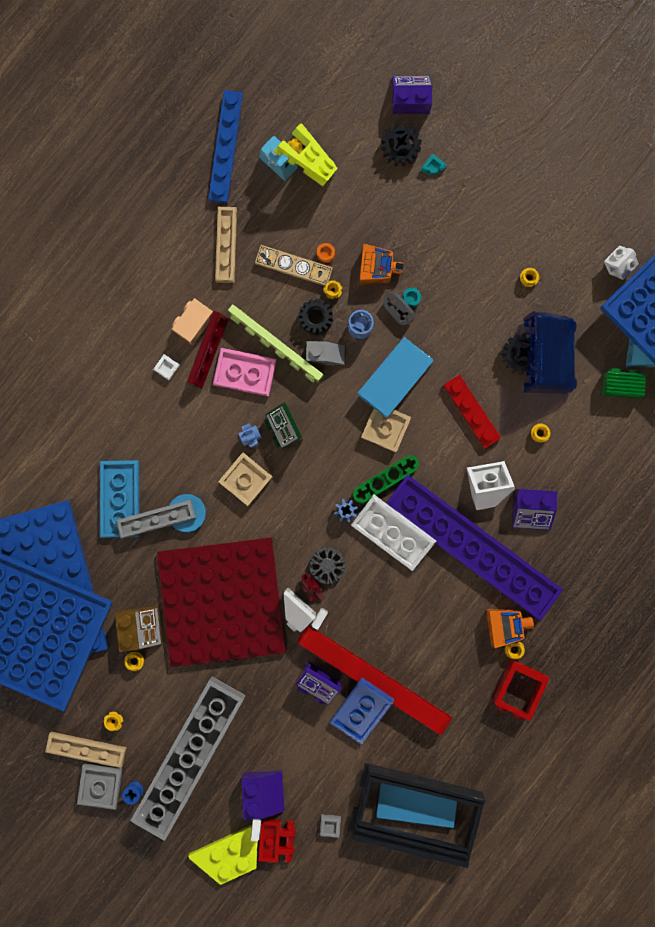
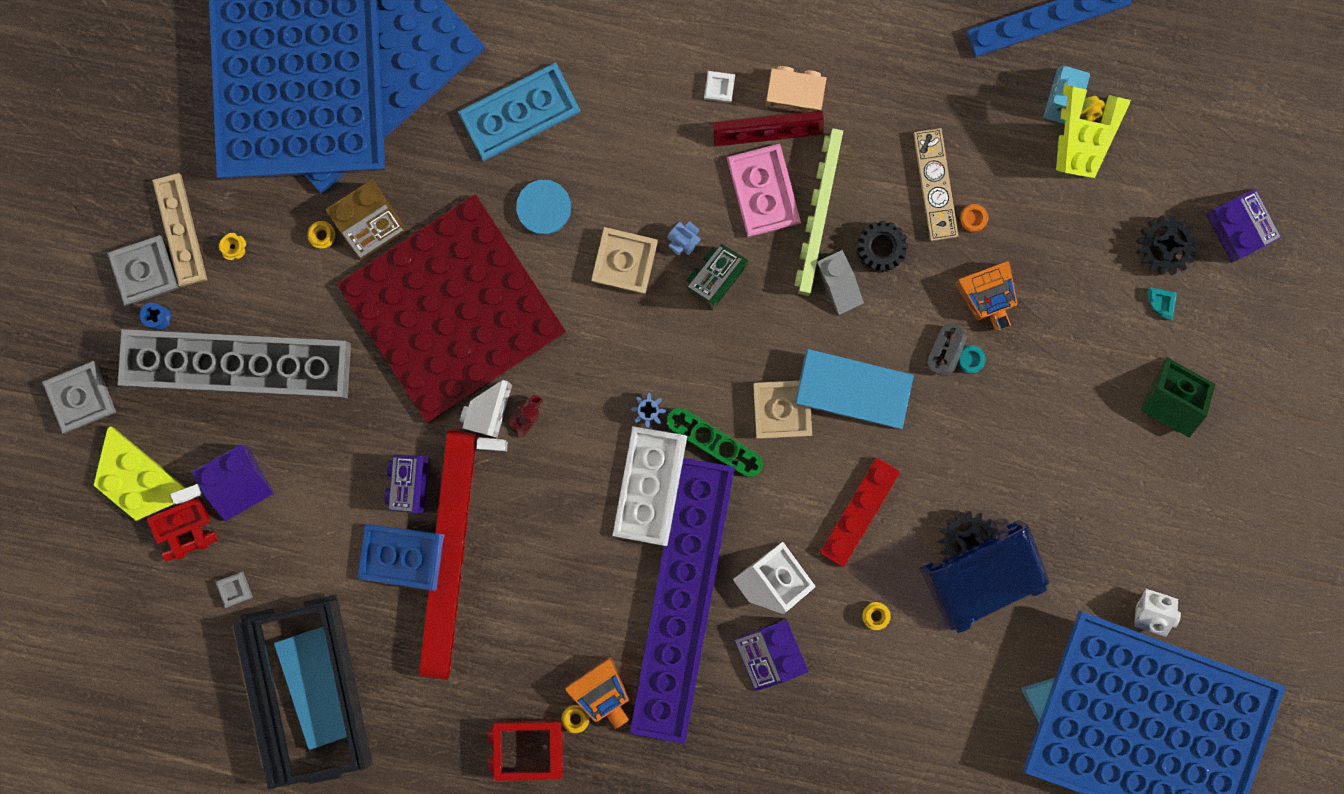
camera: 65 degrees right, 0 degrees up
(156, 519) = (516, 171): light grey tile -> none
(159, 867) = (79, 397): none -> light grey plate
(226, 245) = (919, 83): tan tile -> none
(327, 565) = (565, 422): dark grey wheel -> none
(333, 284) = (935, 256): yellow plate -> none
(360, 324) = (900, 309): medium blue wheel -> none
(497, 184) = (1178, 398): none -> dark green slope
(533, 273) = (1085, 501): yellow plate -> none
(623, 384) = (995, 693): green brick -> none

